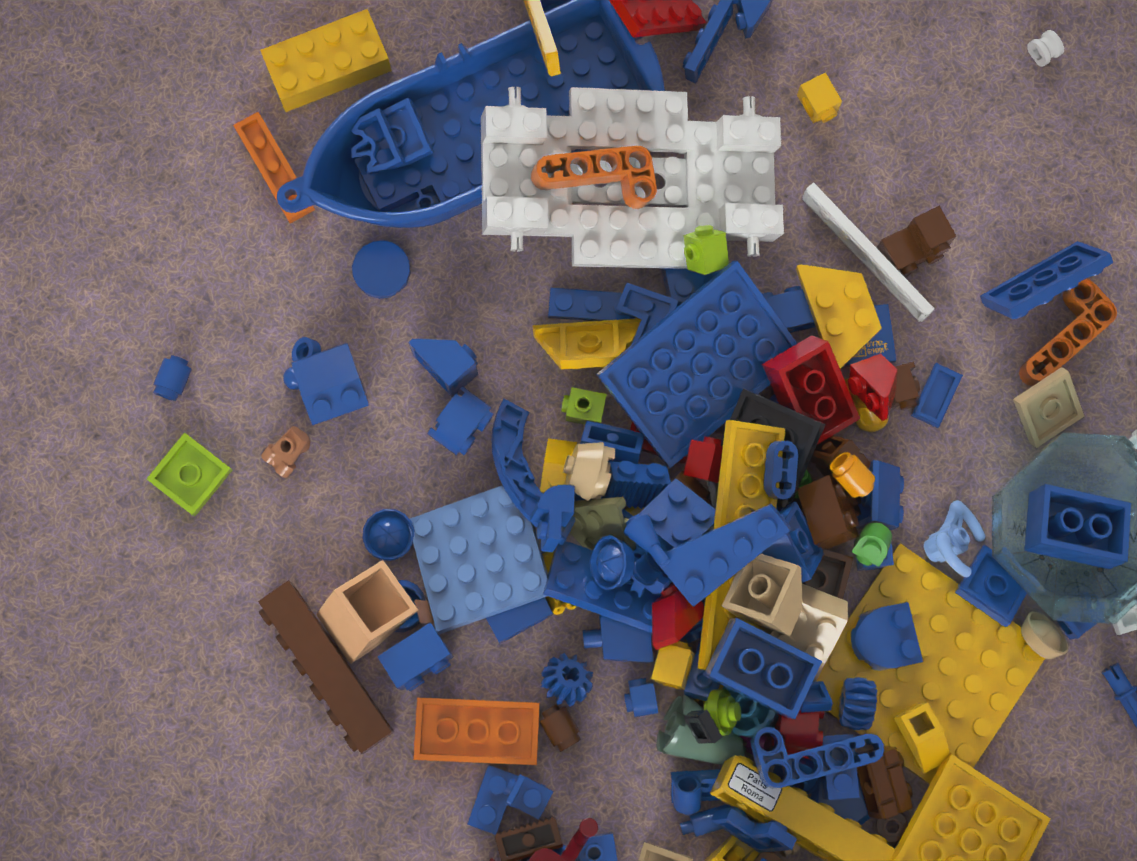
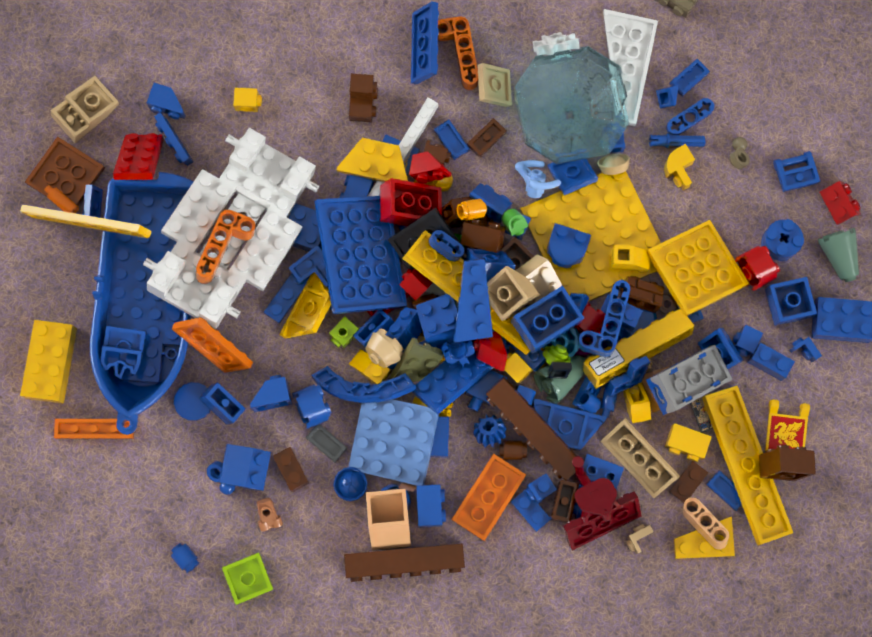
camera: 60 degrees left, 0 degrees up
(362, 445) = (291, 469): none -> reddish brown brick
(396, 305) = (222, 403): none -> blue brick
(425, 471) = (326, 443): none -> dark grey tile
(462, 244) = (212, 345): none -> orange plate
(551, 513) = (396, 382): blue brick -> none
(605, 736) = (533, 427): none -> reddish brown brick
(612, 562) = (442, 366): blue hat -> none
(637, 781) = (570, 424): none -> blue wing
(642, 532) = (438, 339): blue cone -> none
(706, 250) = (299, 212): lime brick -> none
(857, 703) = (593, 282): blue gear -> none
(867, 253) = (350, 127): white tile -> none
(909, 339) = (412, 135): none -> white piece
(969, 440) = (486, 138): none -> reddish brown plate
(1078, 526) = (567, 110): blue brick -> none
(1099, 724) = (675, 165): none -> yellow brick

